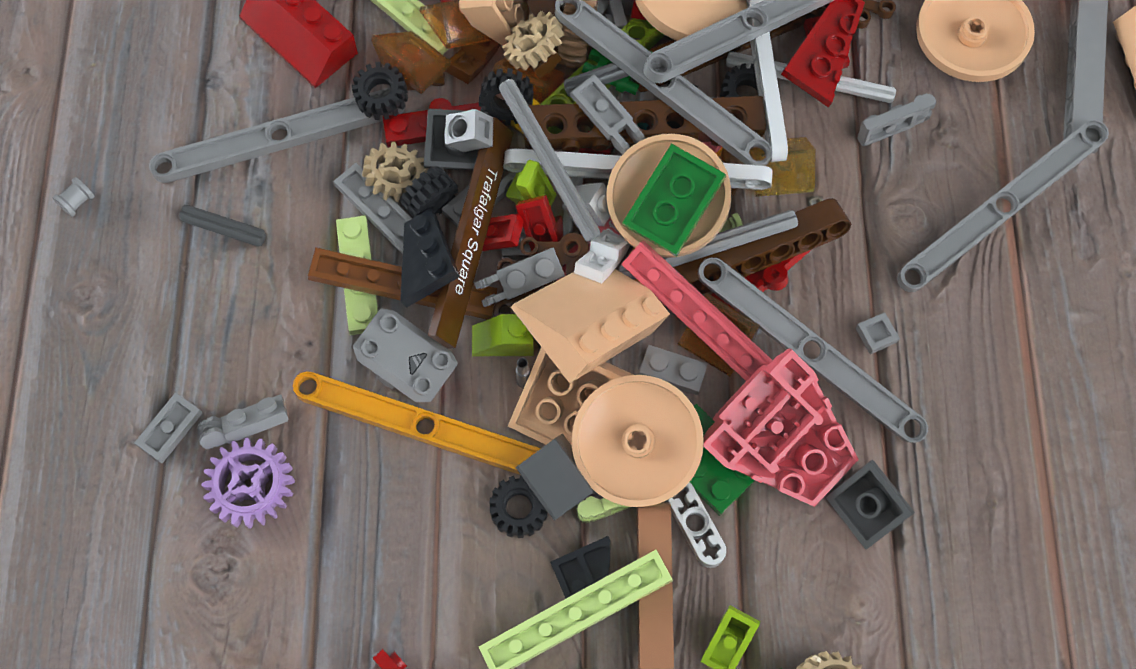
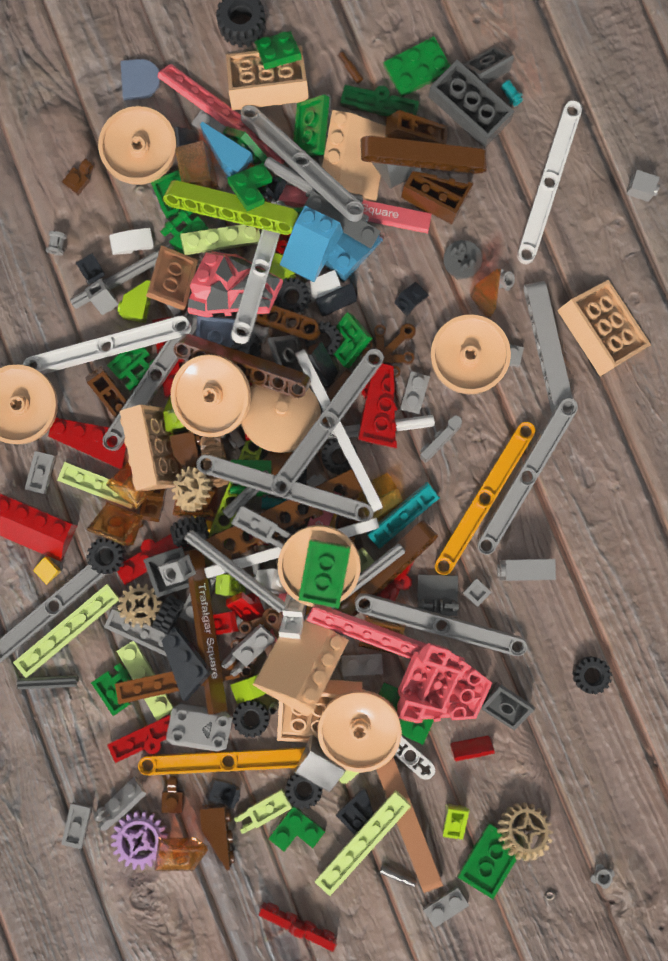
camera: 15 degrees left, 15 degrees up
(280, 169) = (66, 630): none -> yellowish green plate
(291, 88) = (47, 570): none -> yellow slope
(295, 523) = (179, 854): none -> clear orange slope
(298, 260) = (106, 688): none -> green plate
(320, 347) = (143, 738): none -> red hinge
(321, 447) = (172, 799): none -> reddish brown plate
(366, 509) = (215, 828): none -> reddish brown slope
(399, 464) = (223, 792): none -> black bracket
(447, 515) = (265, 810): none -> yellowish green hinge
(478, 361) = (242, 727): none -> black tyre
(482, 555) = (296, 824): none -> green plate
(793, 549) = (472, 748): none -> red slope
(801, 194) = (403, 515): none -> teal plate
(822, 313) = (438, 594): none -> dark grey hinge
(879, 55) = (414, 393): none -> light grey plate
(915, 228) = (478, 510): none -> light orange beam
(964, 322) = (527, 569): none -> light grey brick
(1023, 496) = (604, 675): none -> black tyre
(1034, 59) = (516, 355): none -> light grey plate

